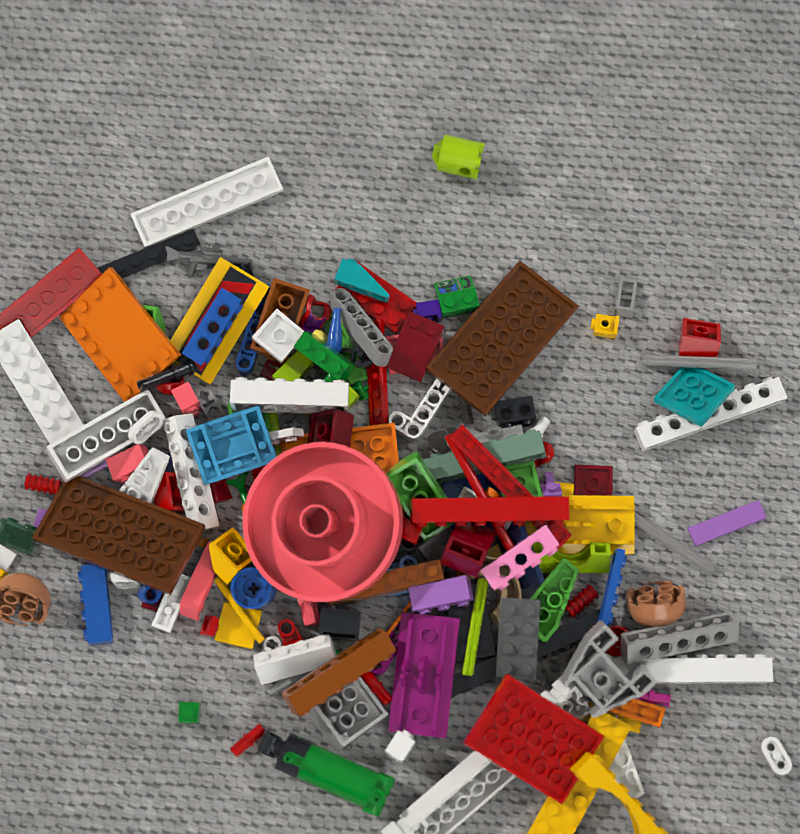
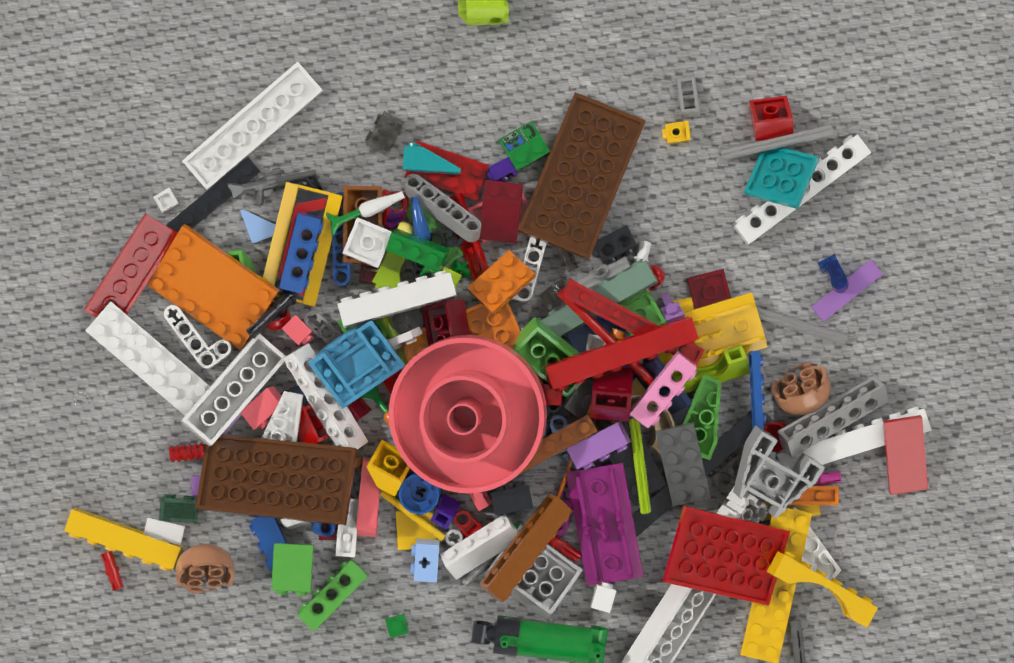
camera: 15 degrees left, 10 degrees up
(86, 377) = (194, 335): none -> white beam
(103, 246) = (166, 200): none -> white tile
(105, 623) = (292, 568): none -> bright green brick
(141, 651) = (313, 619): none -> bright green brick
(145, 427) = (269, 371): white plate -> none
(180, 296) = (258, 228): none -> light blue tile
(210, 626) = (389, 538): red plate -> none
(245, 648) = (425, 571): none -> light blue brick
(248, 740) = (459, 633): red axle -> none
(271, 615) = (445, 511): none -> dark purple brick
(287, 305) = (365, 210): none -> white piece
(332, 248) = (390, 136): none -> clear smoke brick
(395, 412) = (501, 282): none -> orange plate
(581, 600) = (730, 408): red piece -> none
(721, 502) = (833, 268): none -> clear blue leg
(740, 697) = (905, 454): none -> tile
(776, 755) = (952, 497): white plate -> none

